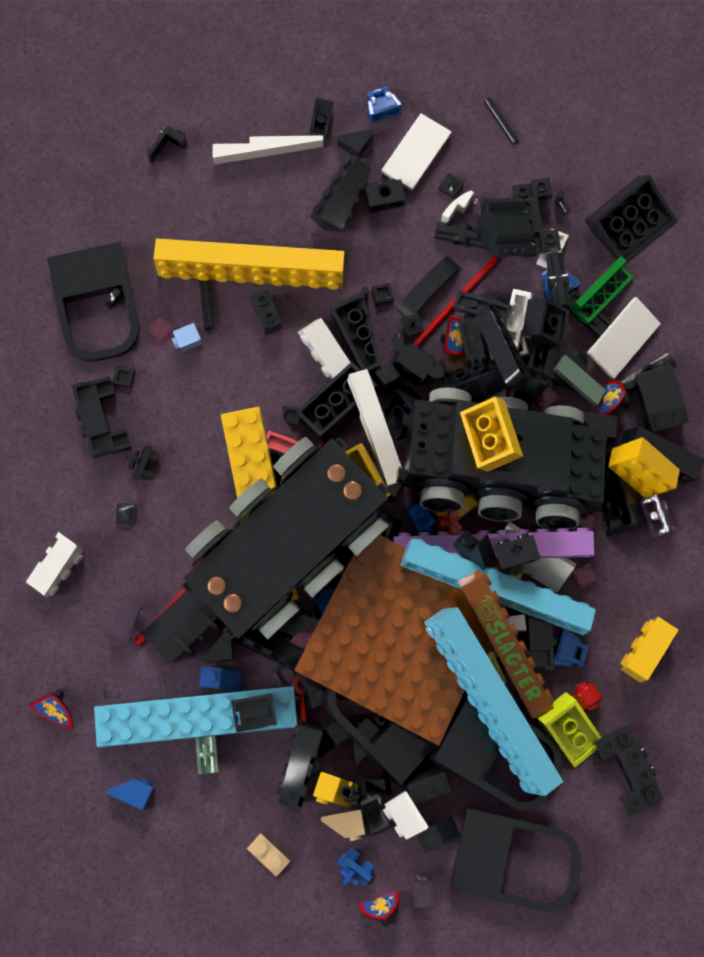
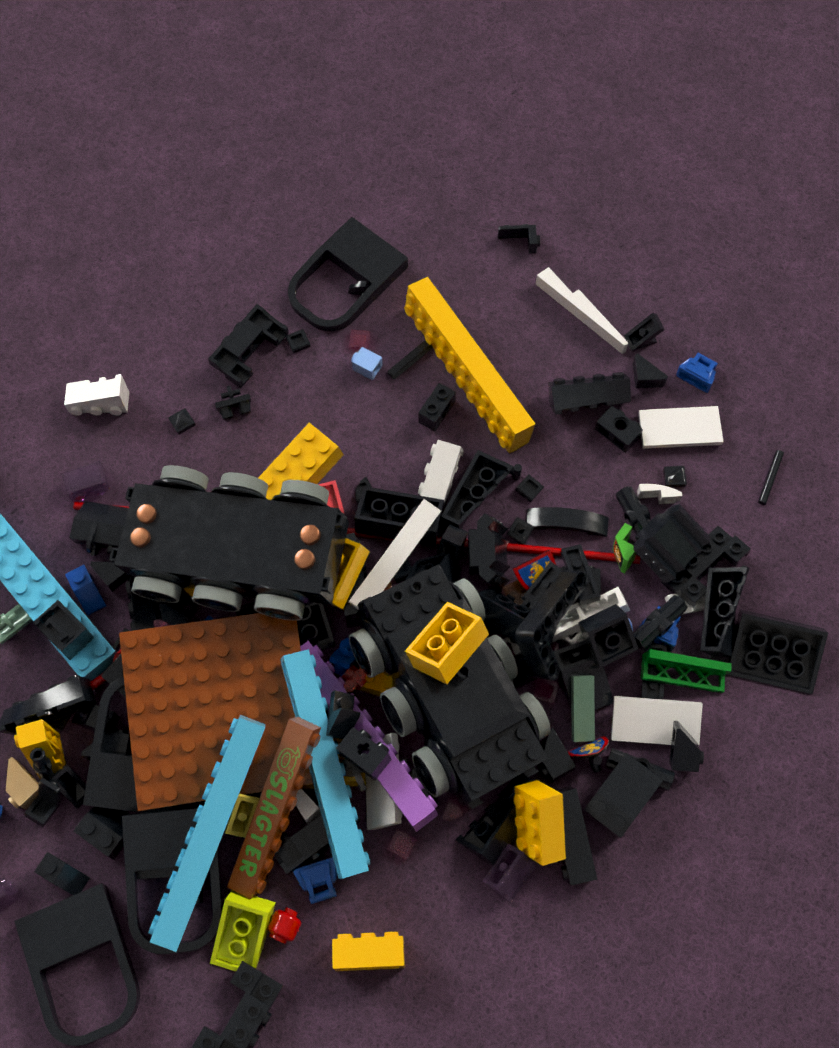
camera: 55 degrees right, 10 degrees down
(405, 815) = (59, 835): white slope -> none
(486, 265) = (622, 549): none -> bright green slope
(575, 226) = (721, 601): none -> black wedge
(658, 335) = (684, 750): none -> black slope

